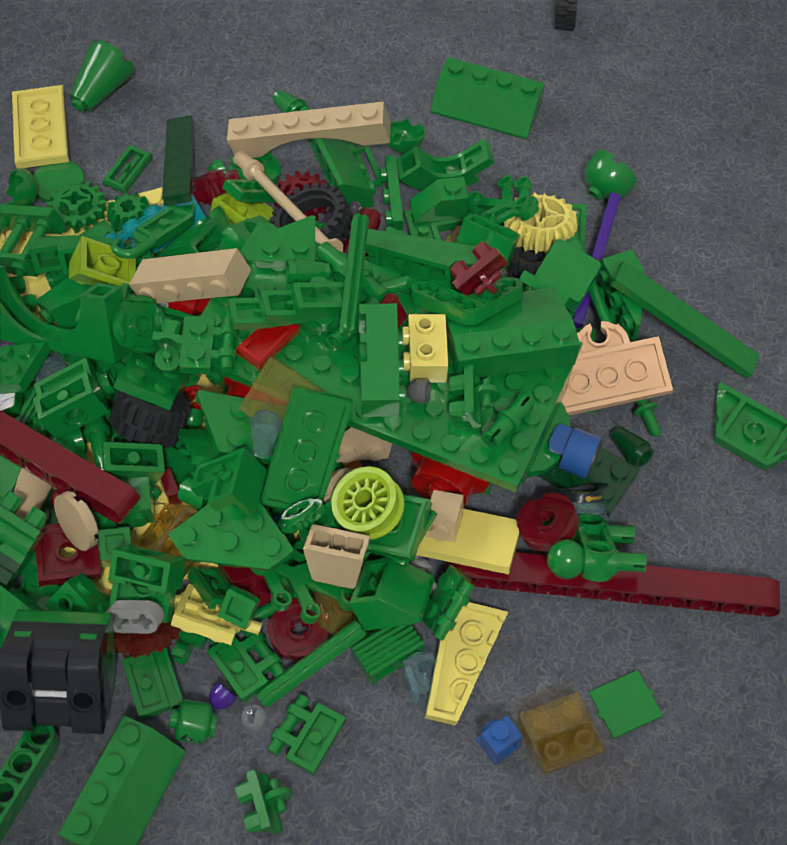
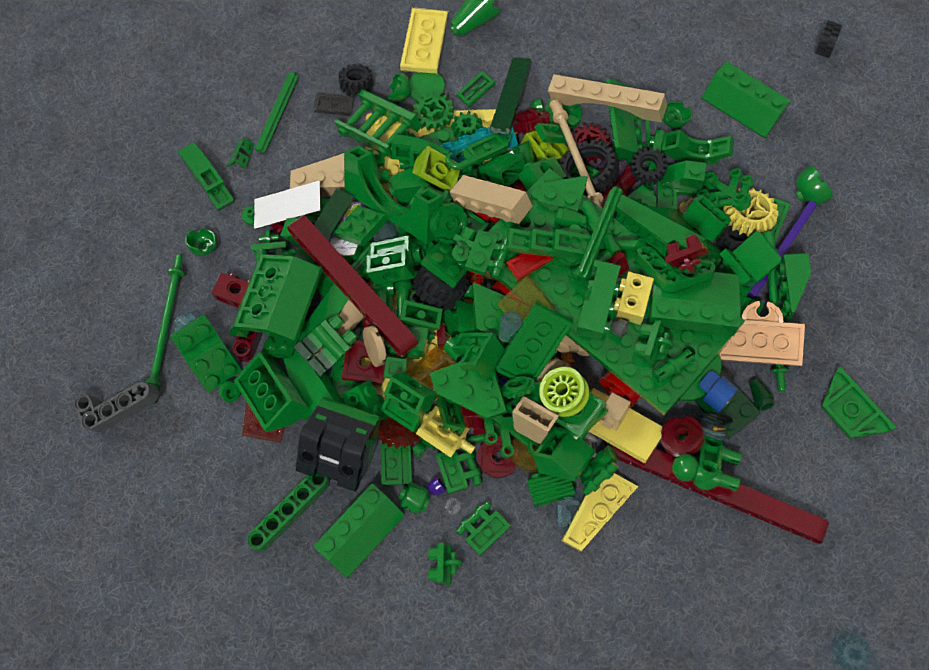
camera: 25 degrees right, 10 degrees up
(129, 616) = (395, 422): light grey beam -> none
(239, 607) = (462, 434): green tile -> none
(288, 102) = (602, 69): green cone -> none
(311, 664) = (498, 483): green axle -> none
(389, 187) = (648, 155): none -> black tyre
(499, 739) = (604, 570): blue brick -> none
(559, 733) = (644, 581): clear yellow slope -> none
(625, 704) = (696, 572): green piece -> none
(684, 319) = (828, 315): green tile -> none

